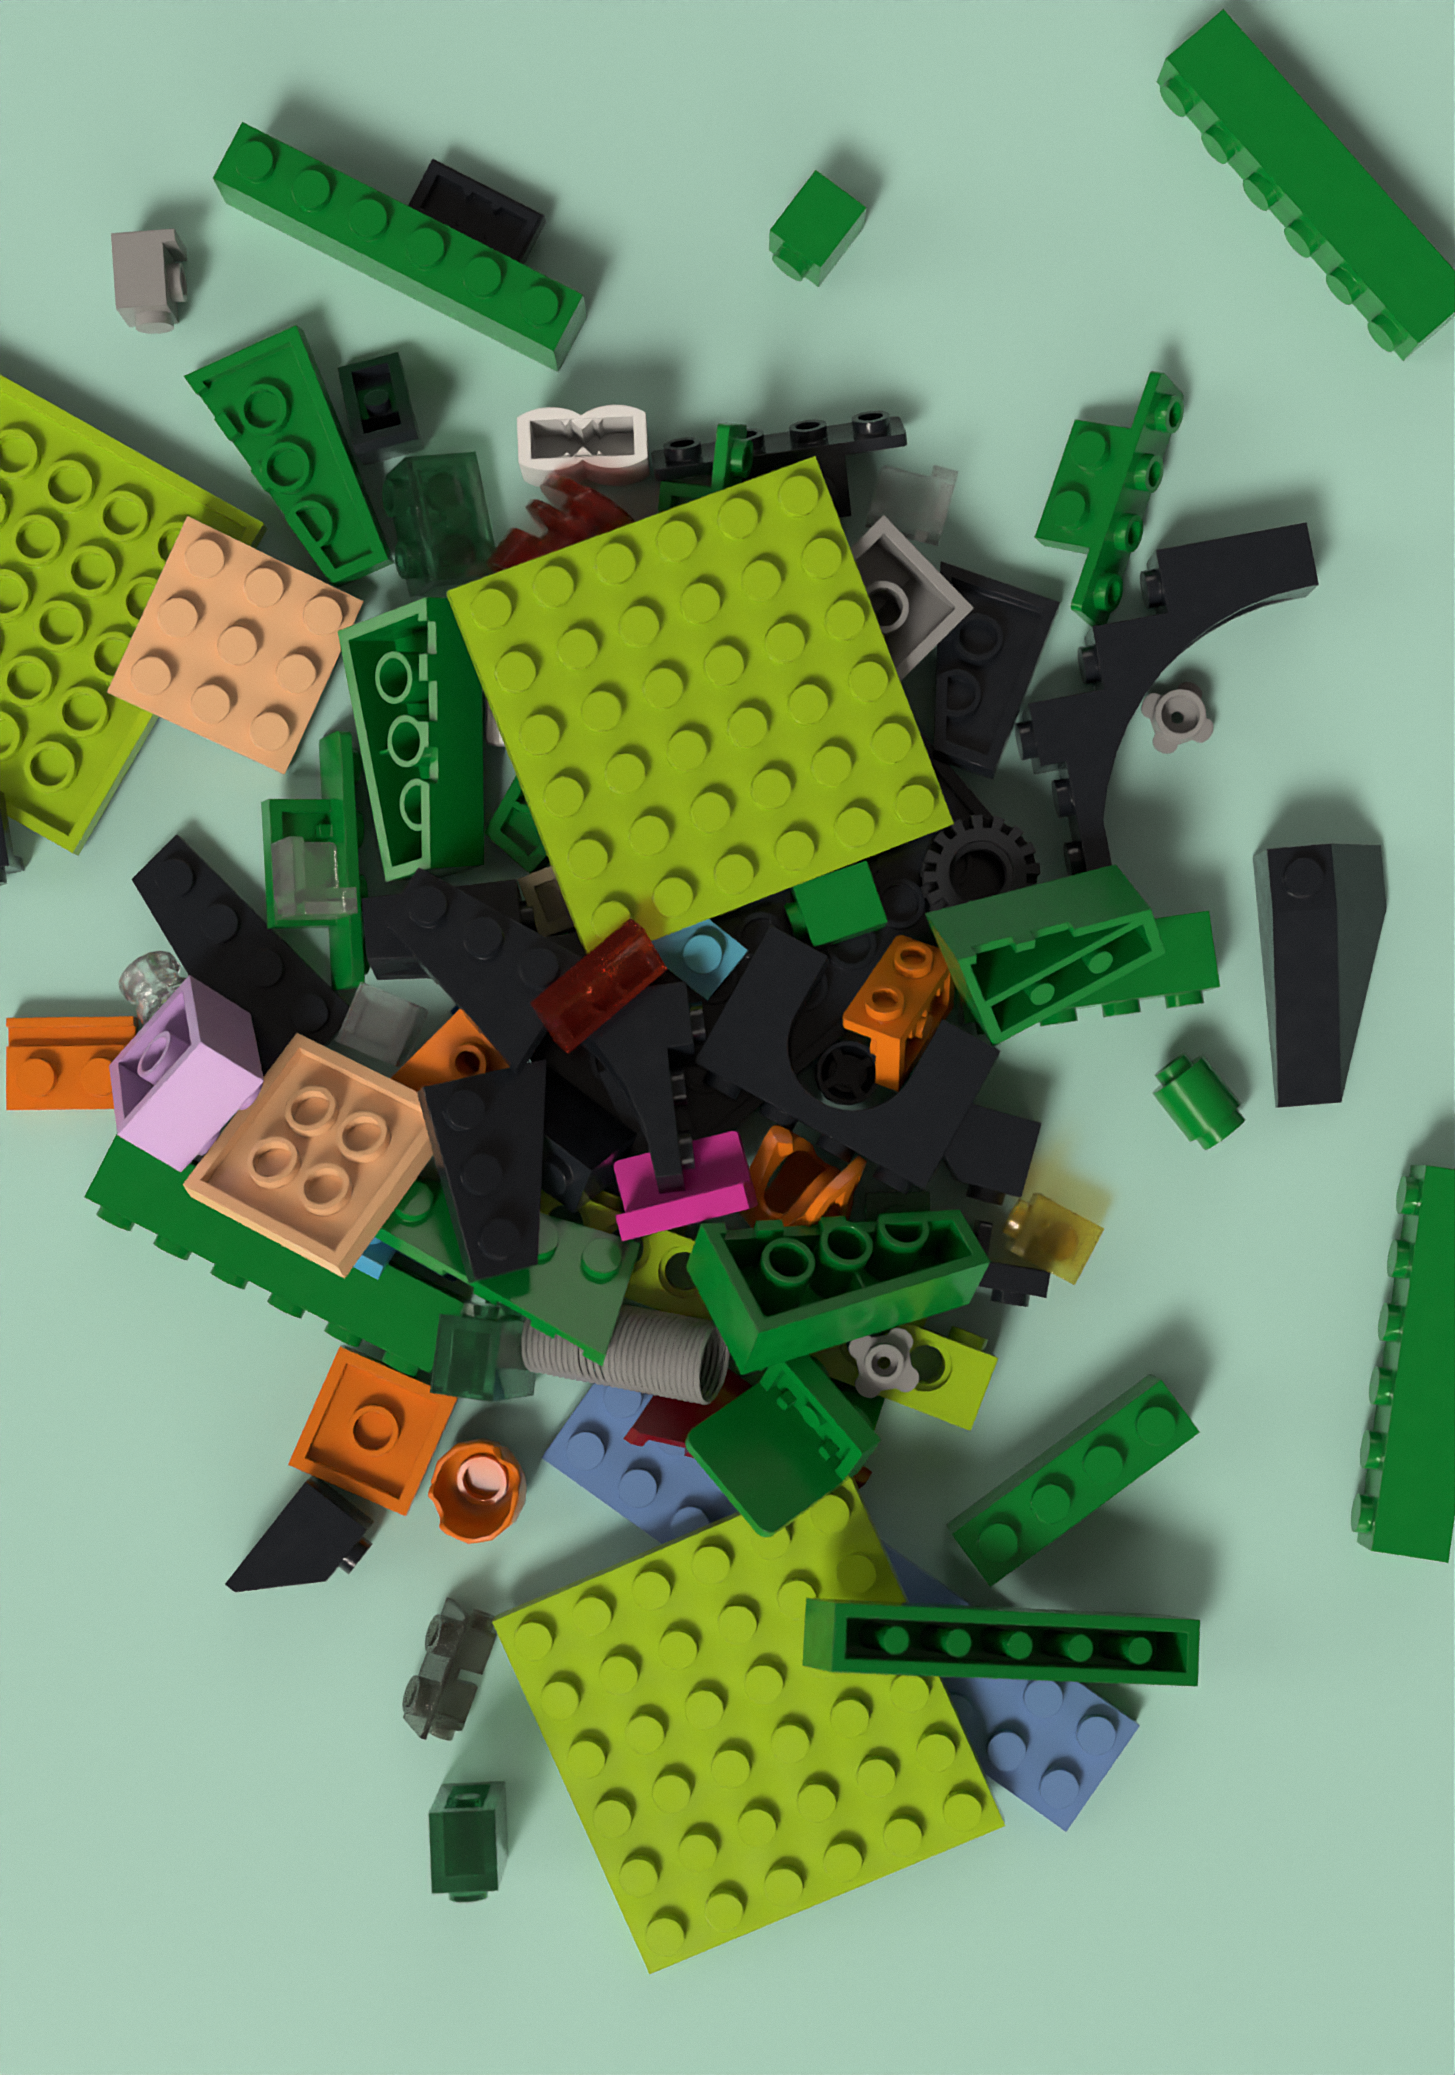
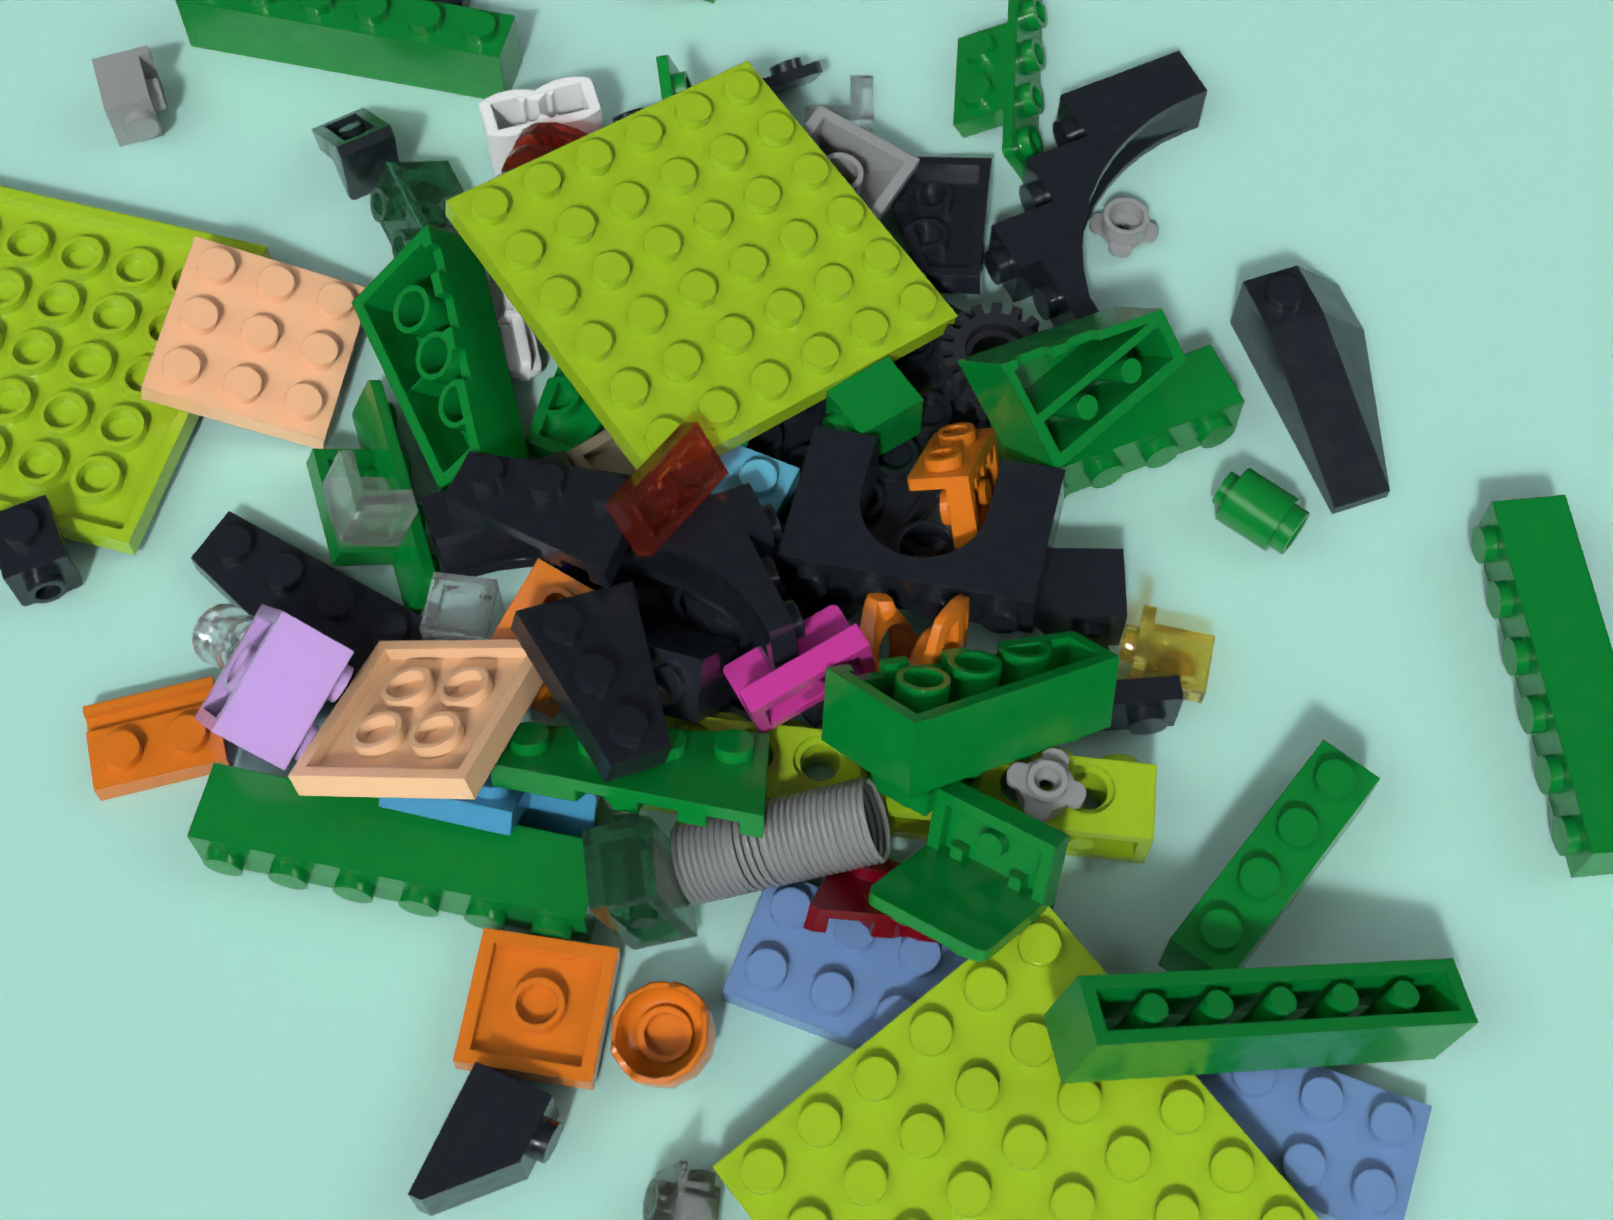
camera: 15 degrees left, 25 degrees down
(288, 432) = (284, 190): green wing -> none

